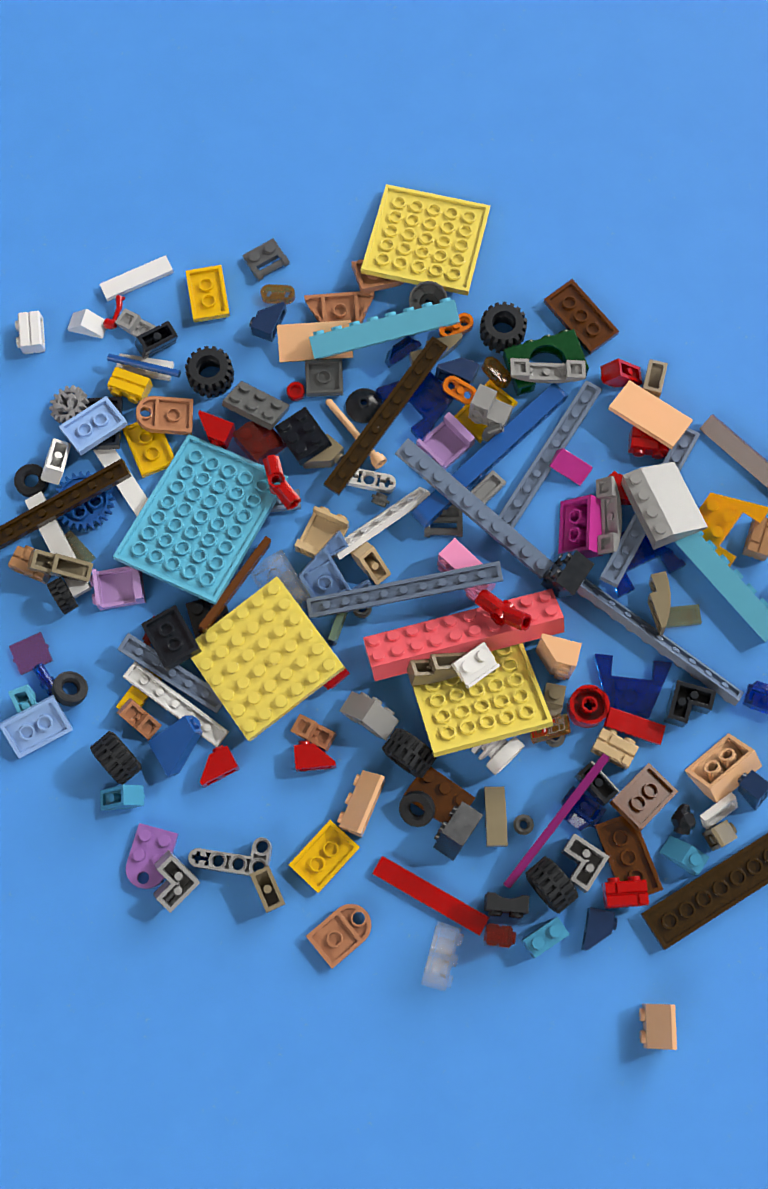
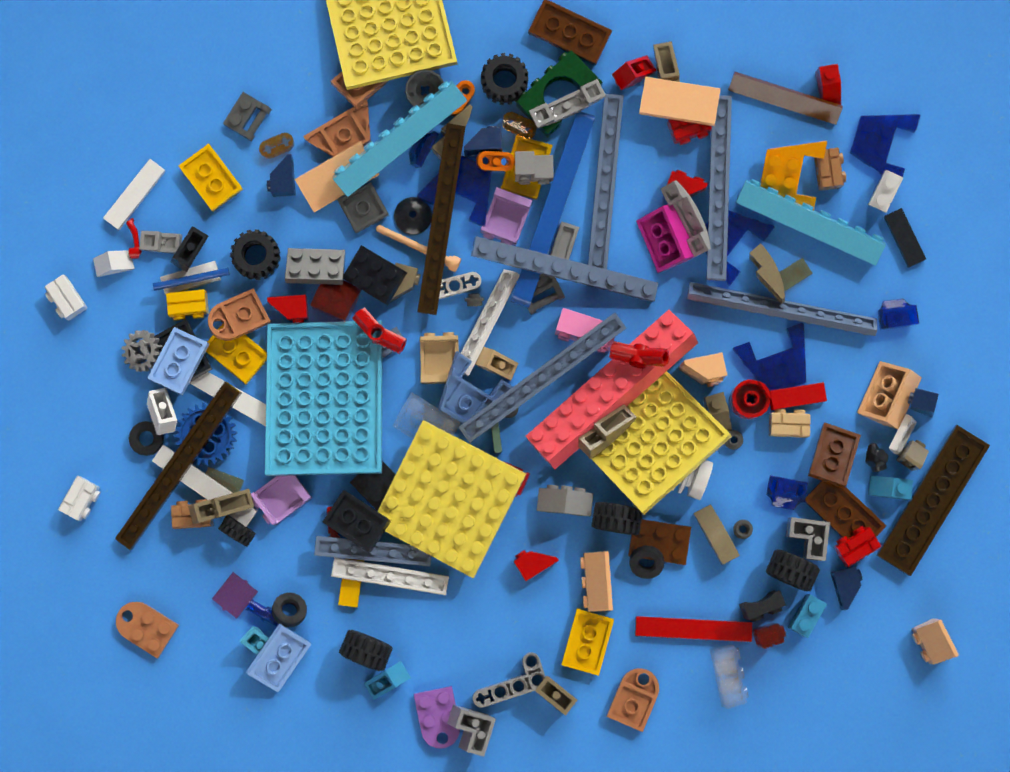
camera: 30 degrees left, 10 degrees up
(139, 719) = (365, 605): nougat slope -> none
(176, 744) = (410, 611): blue slope -> none
(218, 765) = (456, 610): red slope -> none
(235, 585) = (387, 442): reddish brown tile -> none
(295, 391) = (343, 233): red tile -> none
(313, 732) = (523, 540): nougat slope -> none
(455, 833) = (691, 569): black brick -> none
(475, 665) = (637, 414): white plate -> none
(491, 431) = (543, 190): dark grey arm -> none
(556, 821) = (771, 513): magenta tile -> none
(560, 727) = (736, 430): clear orange tile -> none
(567, 573) = (676, 289): black brick -> none
(570, 466) = (630, 185): dark pink slope -> none
(601, 786) = (789, 463): black brick -> none
(662, 503) = (731, 183): slope -> none
(685, 698) = (829, 351): black brick -> none

